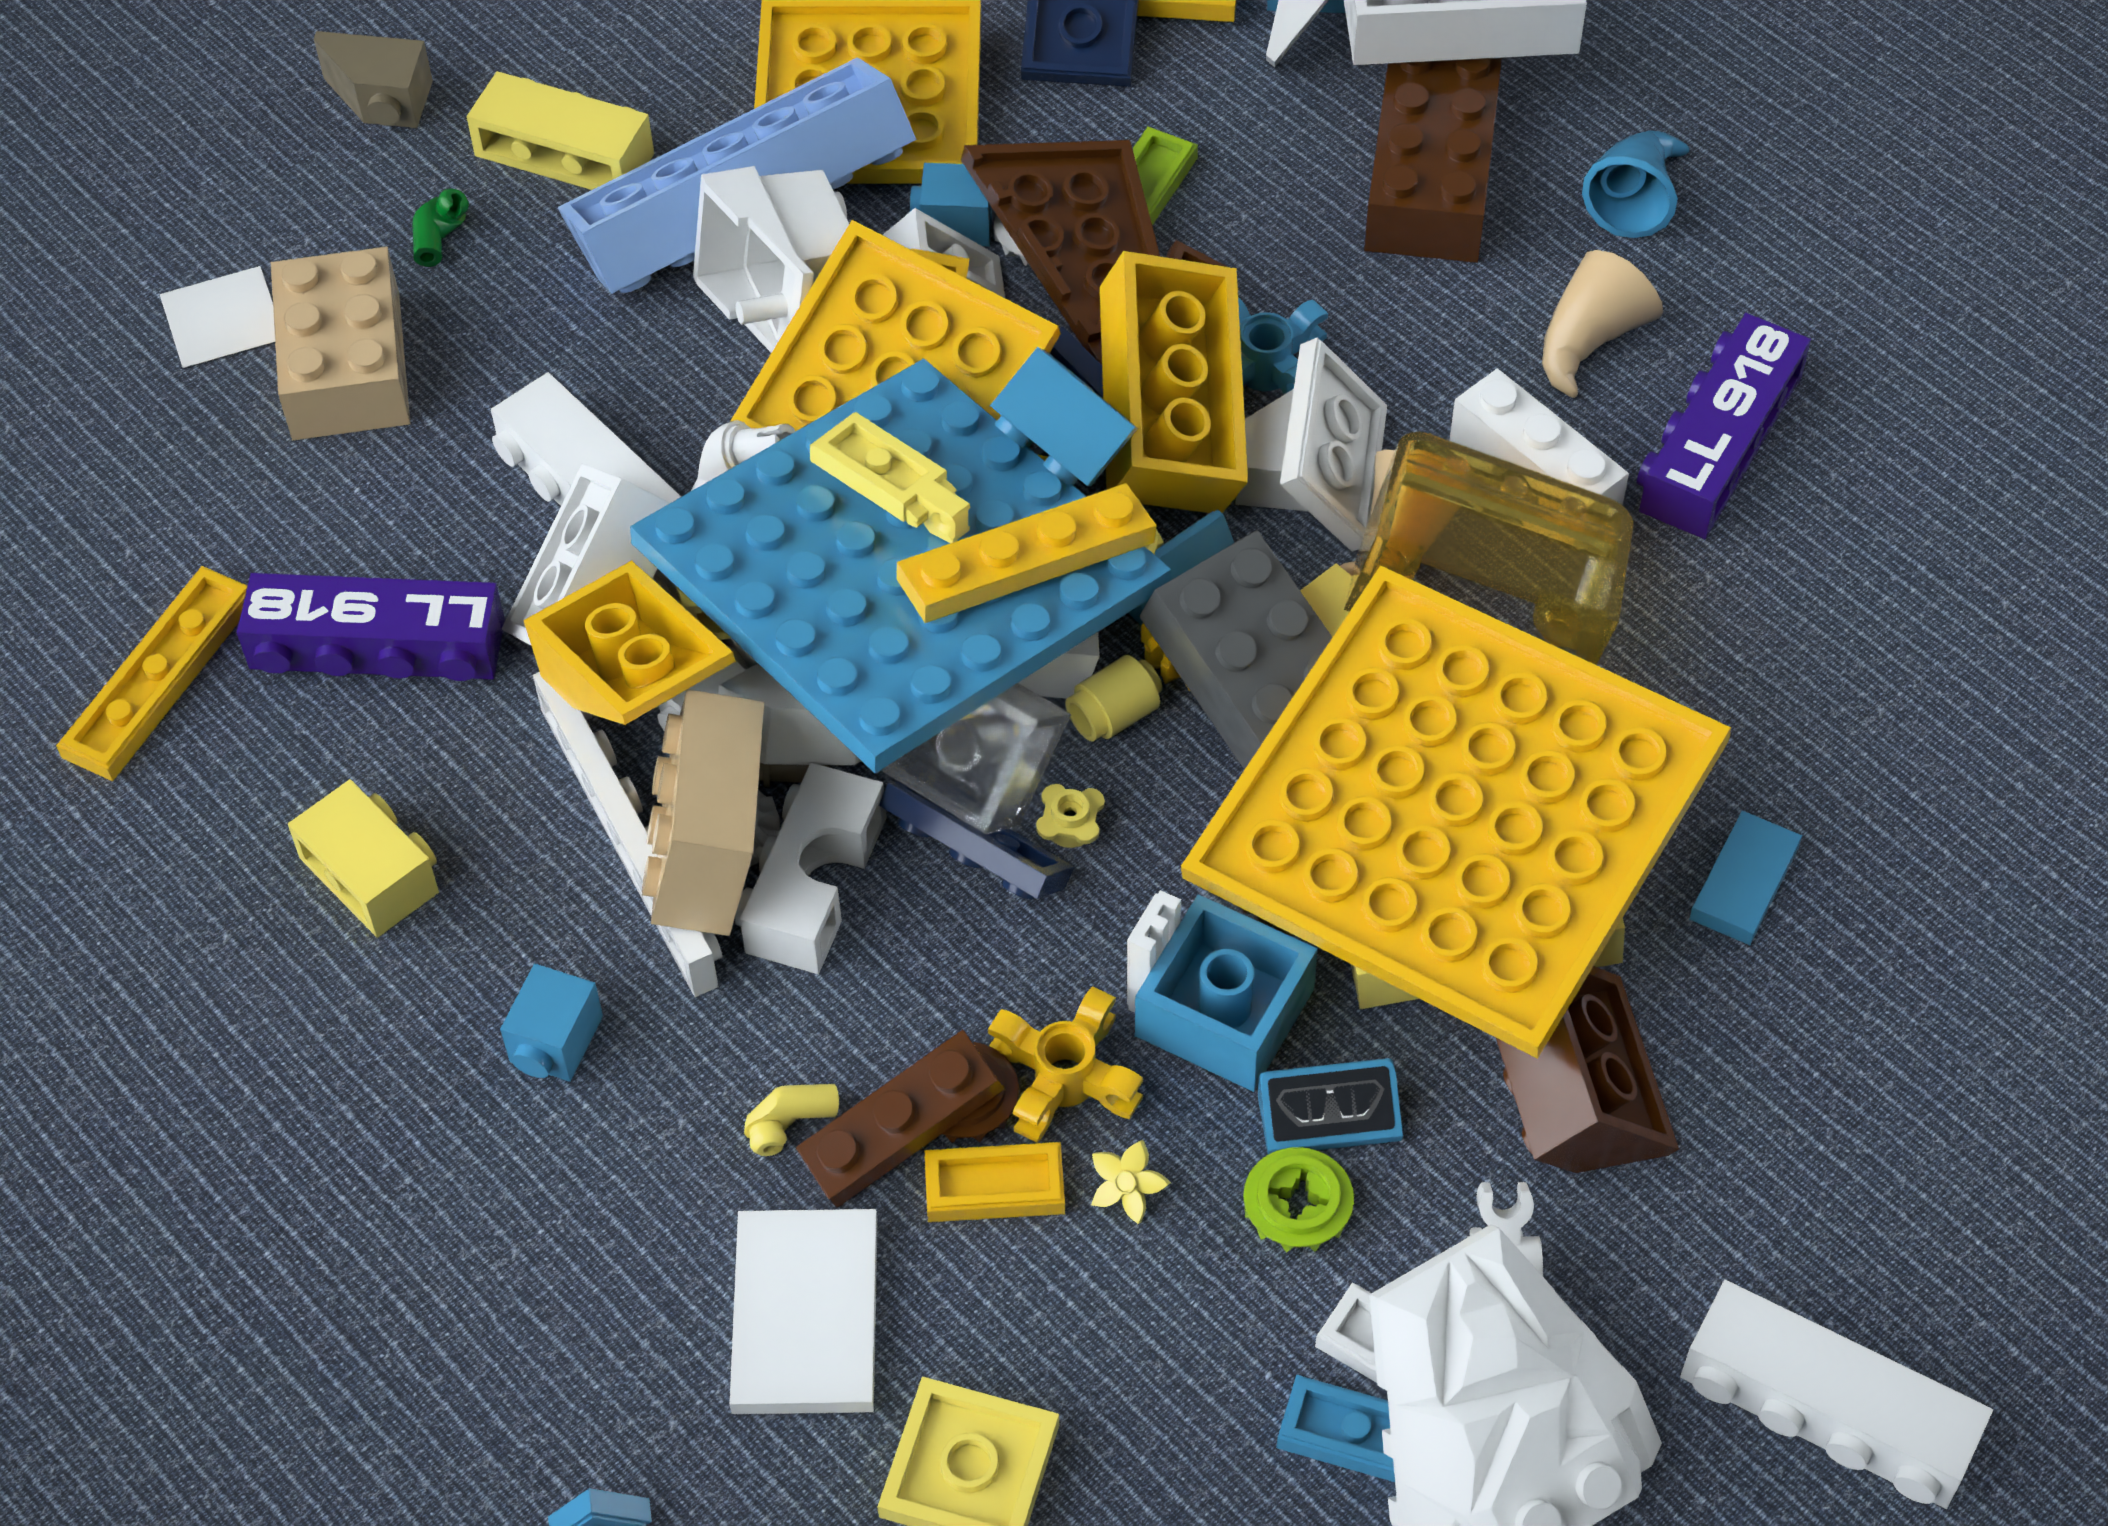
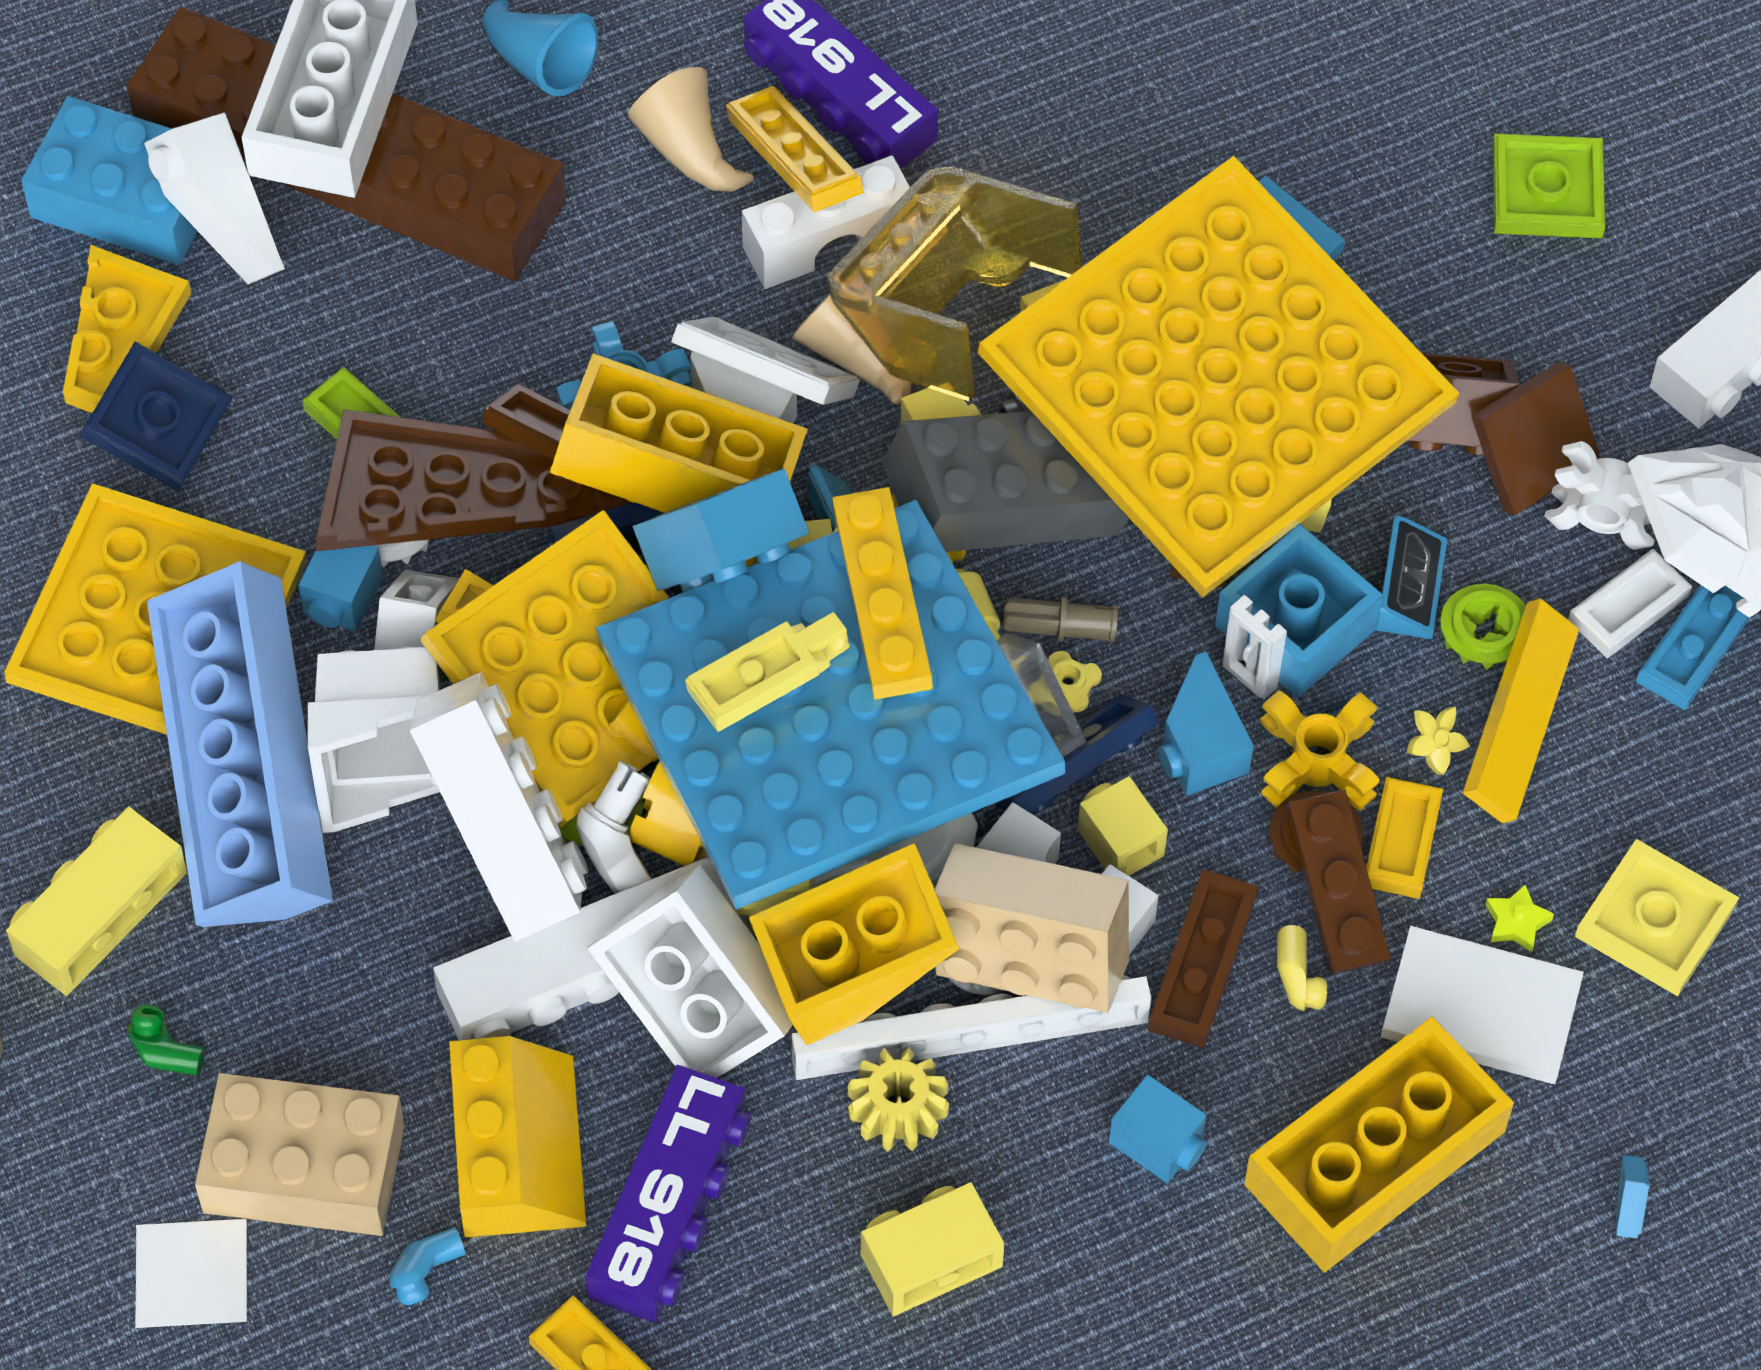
camera: 75 degrees left, 5 degrees up
(266, 464) = (418, 1259): none -> dark azure arm
(402, 492) = (516, 1137): none -> yellow slope
(524, 786) = (898, 1079): none -> light yellow gear
(579, 1228) = (1378, 1143): none -> yellow brick
(696, 336) = (499, 805): none -> white brick
(773, 1018) = (1203, 958): none -> reddish brown plate
(902, 901) = (1121, 827): none -> light yellow brick
(930, 1325) = (1517, 918): none -> neon yellow piece
(1051, 946) = (1204, 733): none -> dark azure slope
(1143, 789) = (1060, 619): none -> dark tan axle
(1194, 1257) = (1521, 711): none -> yellow tile
(1571, 1168) = (1526, 435): none -> reddish brown tile
(1599, 395) = (794, 149): none -> yellow tile
(1944, 1131) = (1548, 185): none -> lime tile

